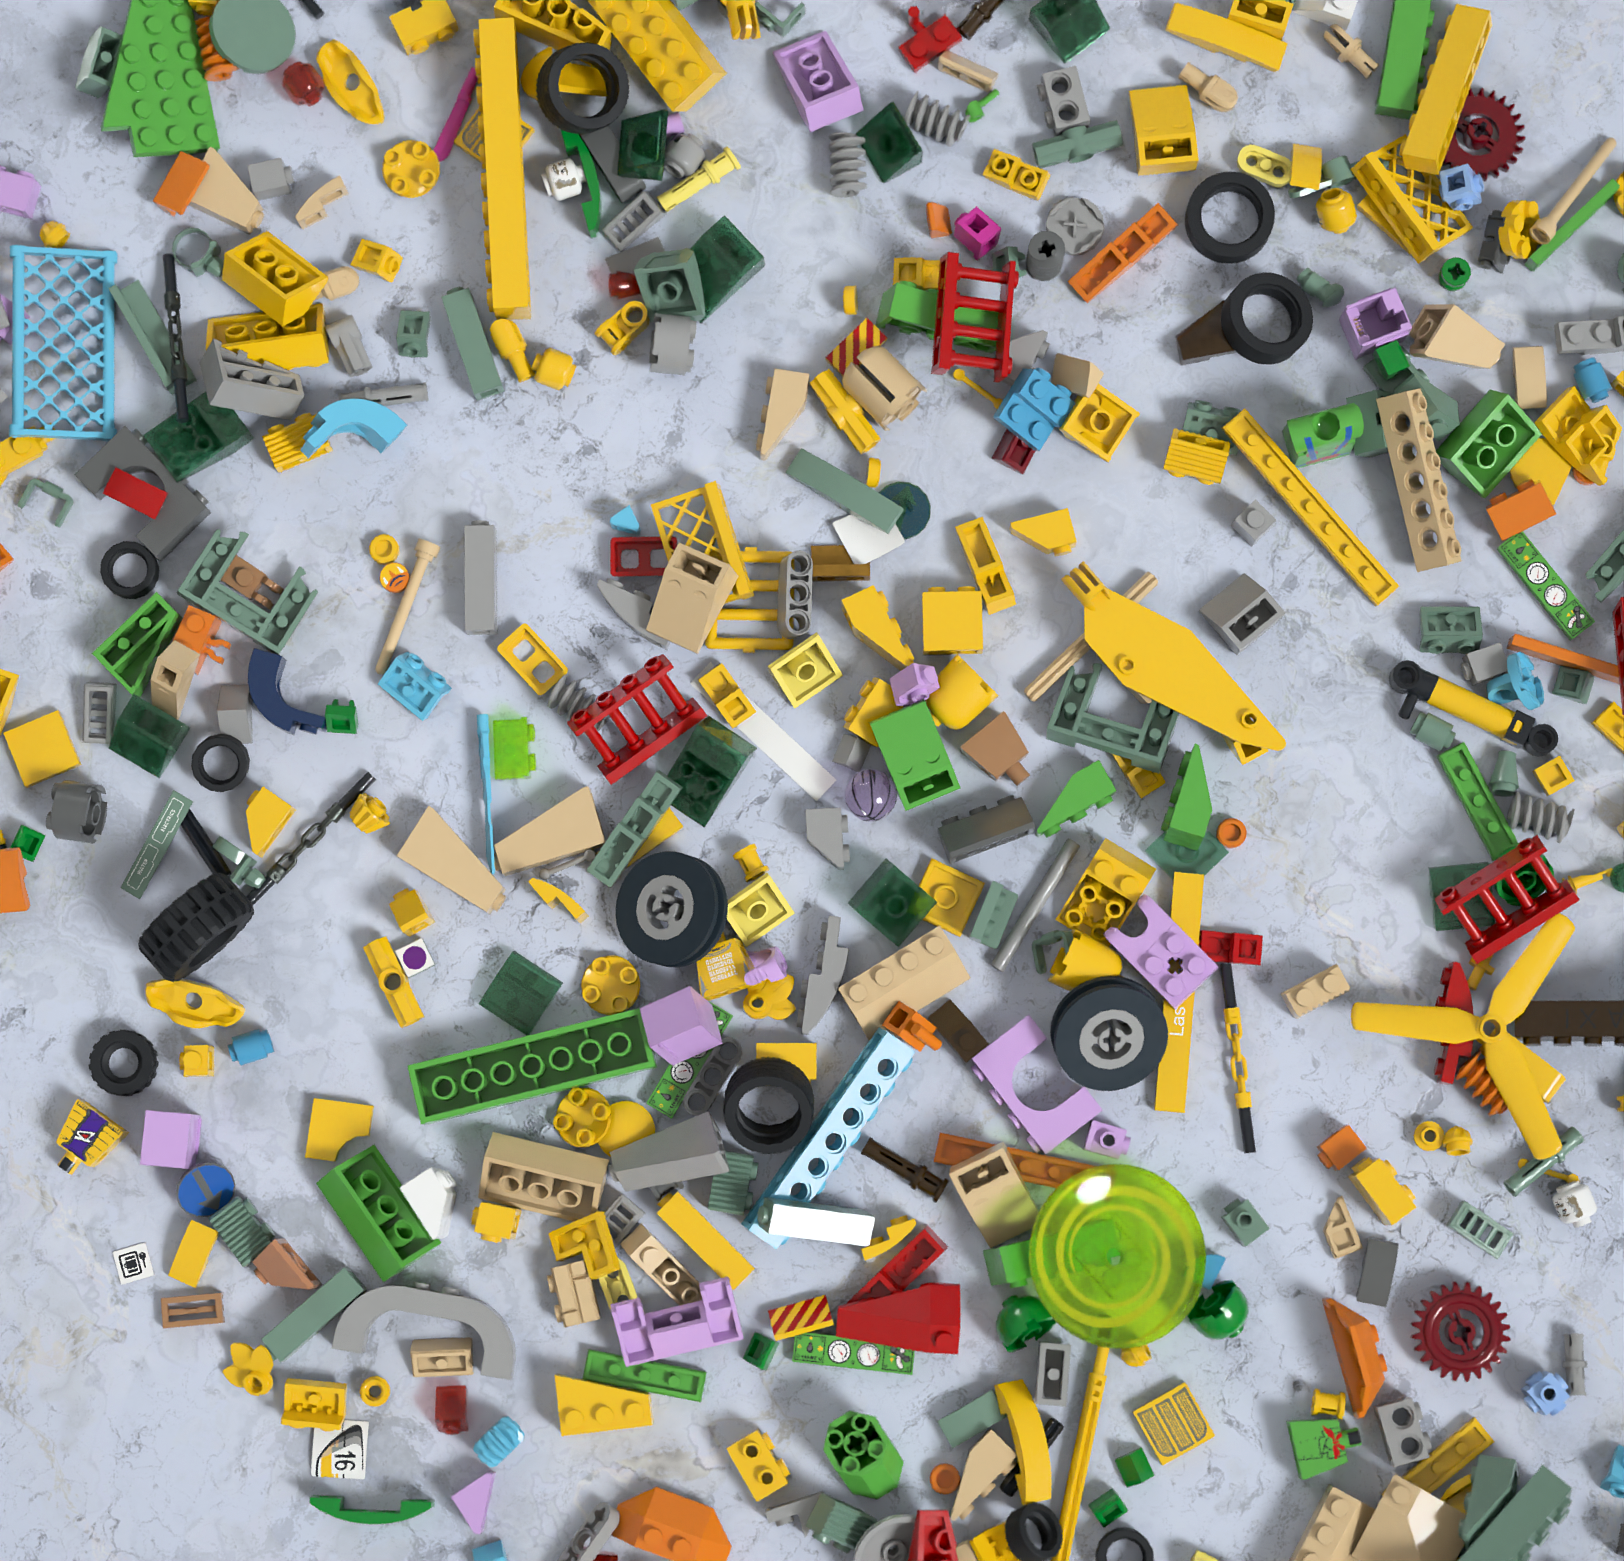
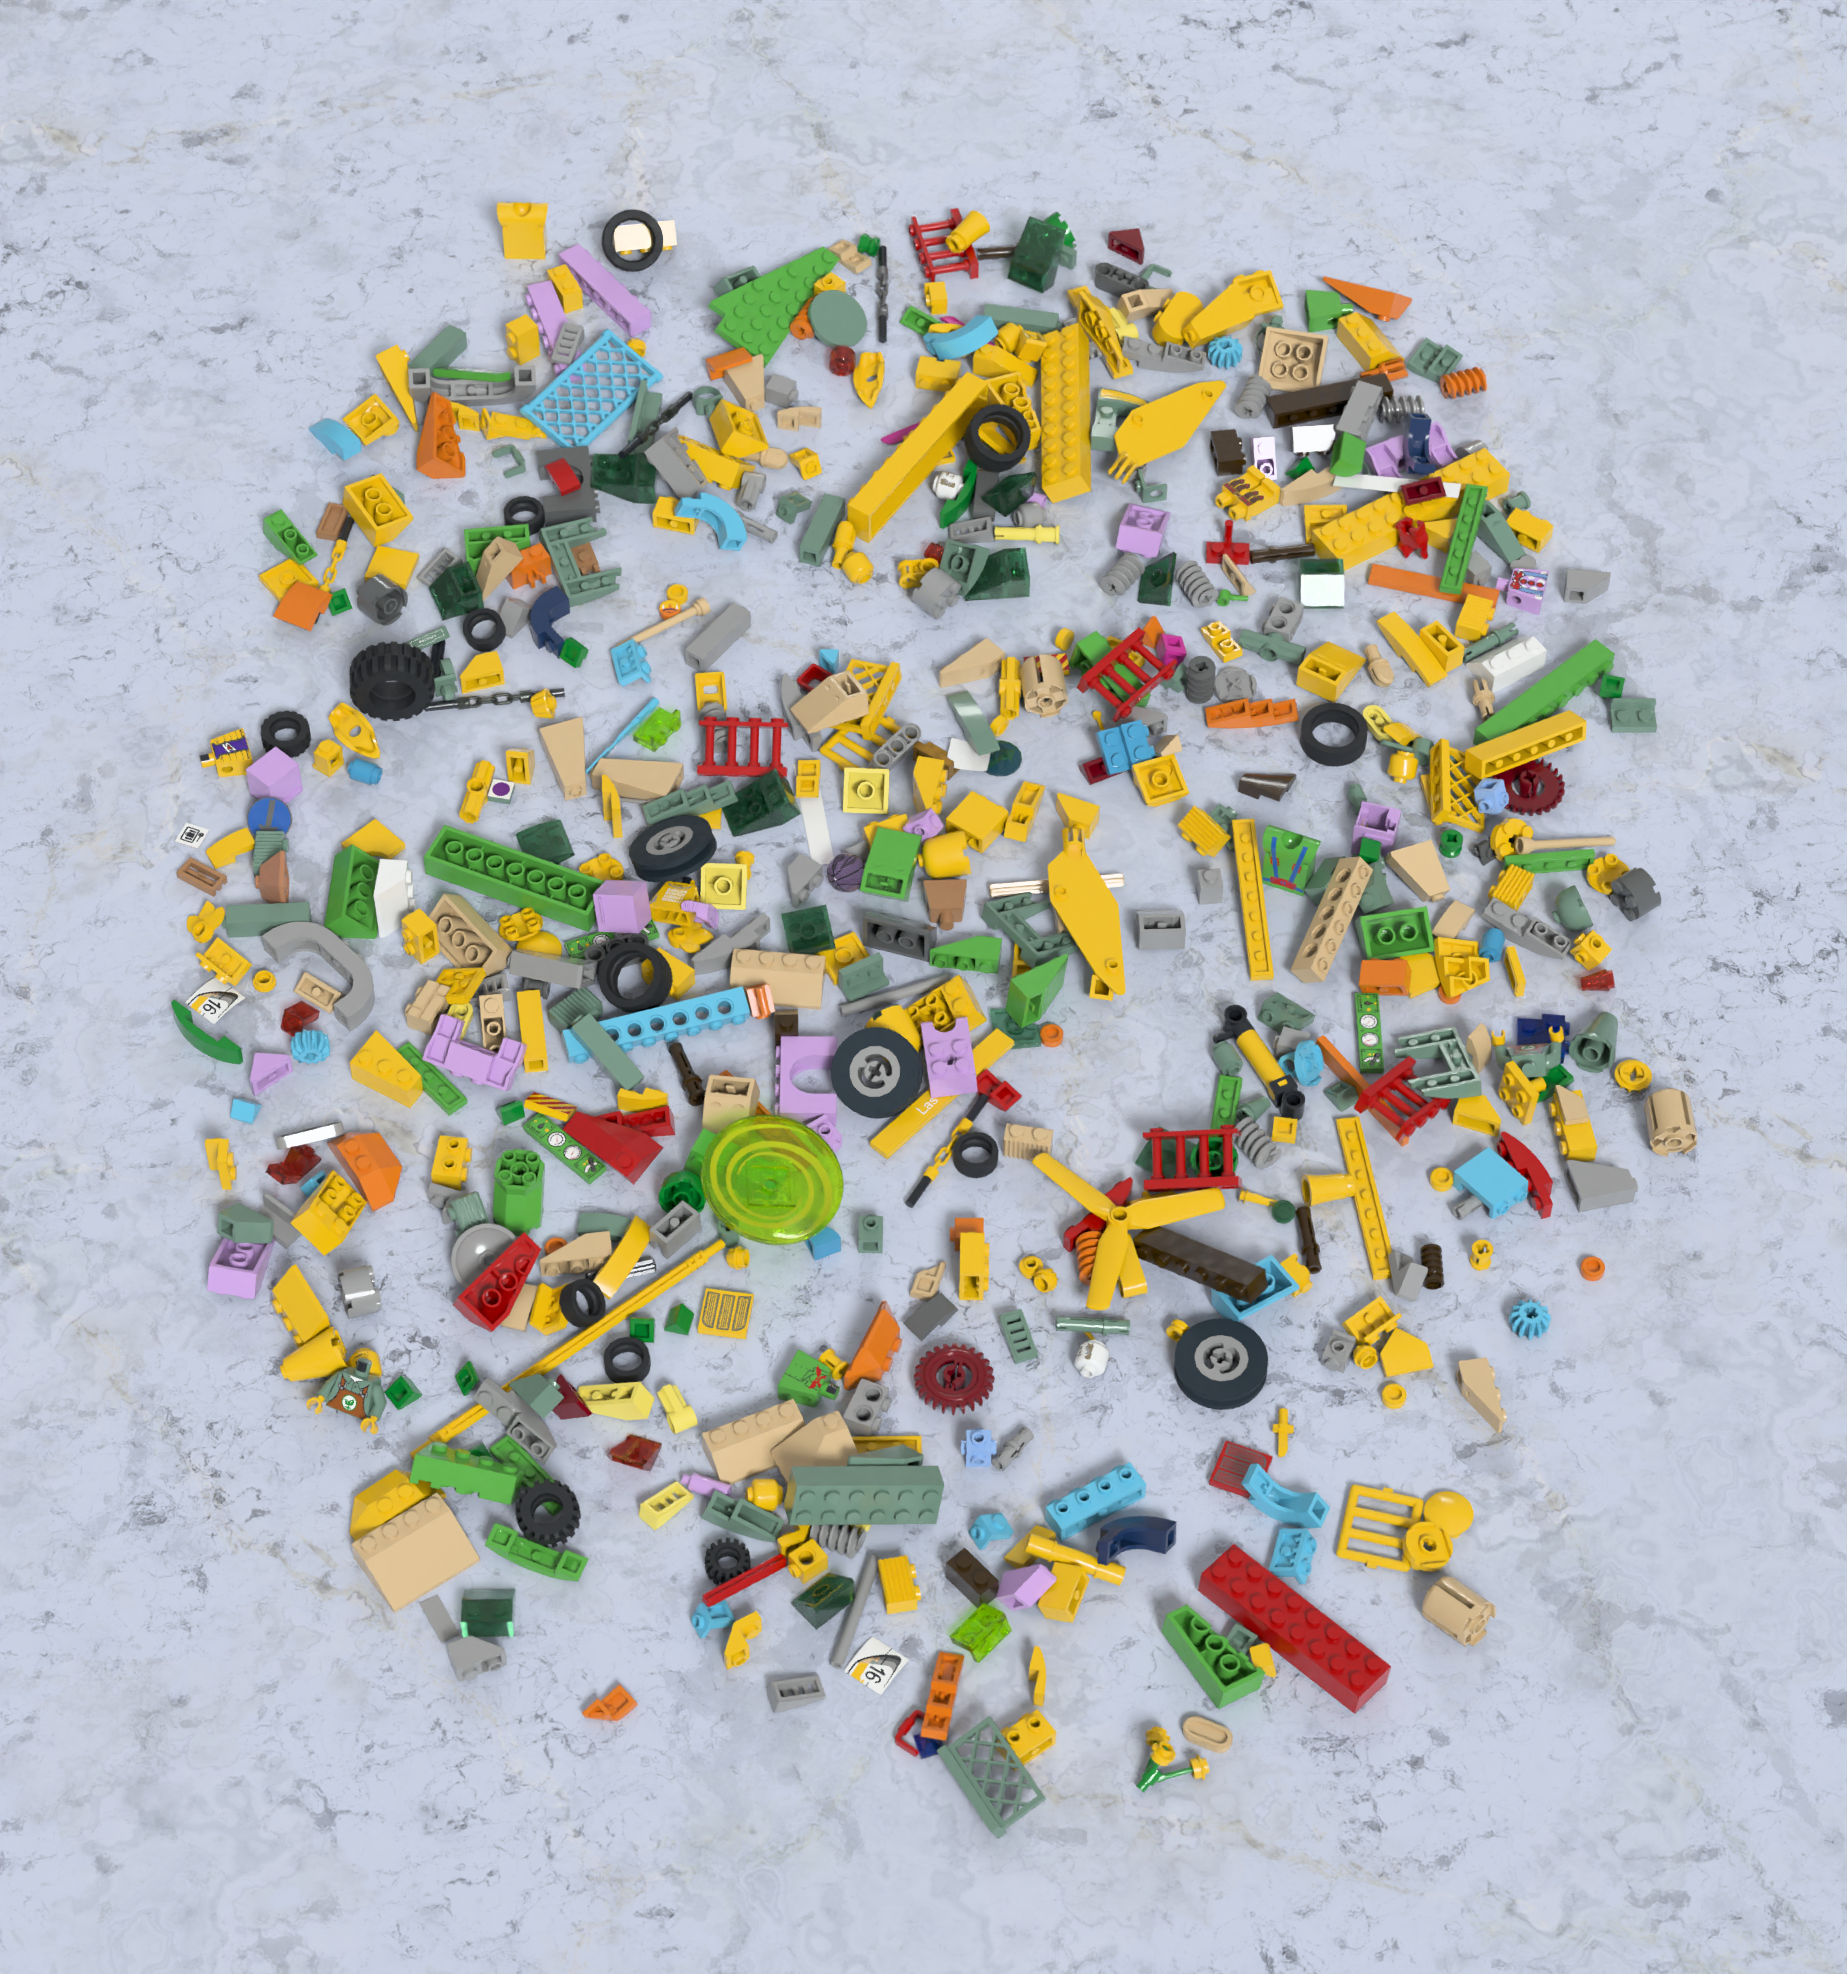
camera: 30 degrees right, 30 degrees down
(411, 168) = (866, 434): yellow dish -> none
(1221, 1313) = (810, 1267): green cylinder -> none
(1286, 293) = (1322, 773): black tyre -> none
(1295, 1042) = (975, 1139): none -> black tyre
(1559, 291) = (1512, 886): none -> yellow brick

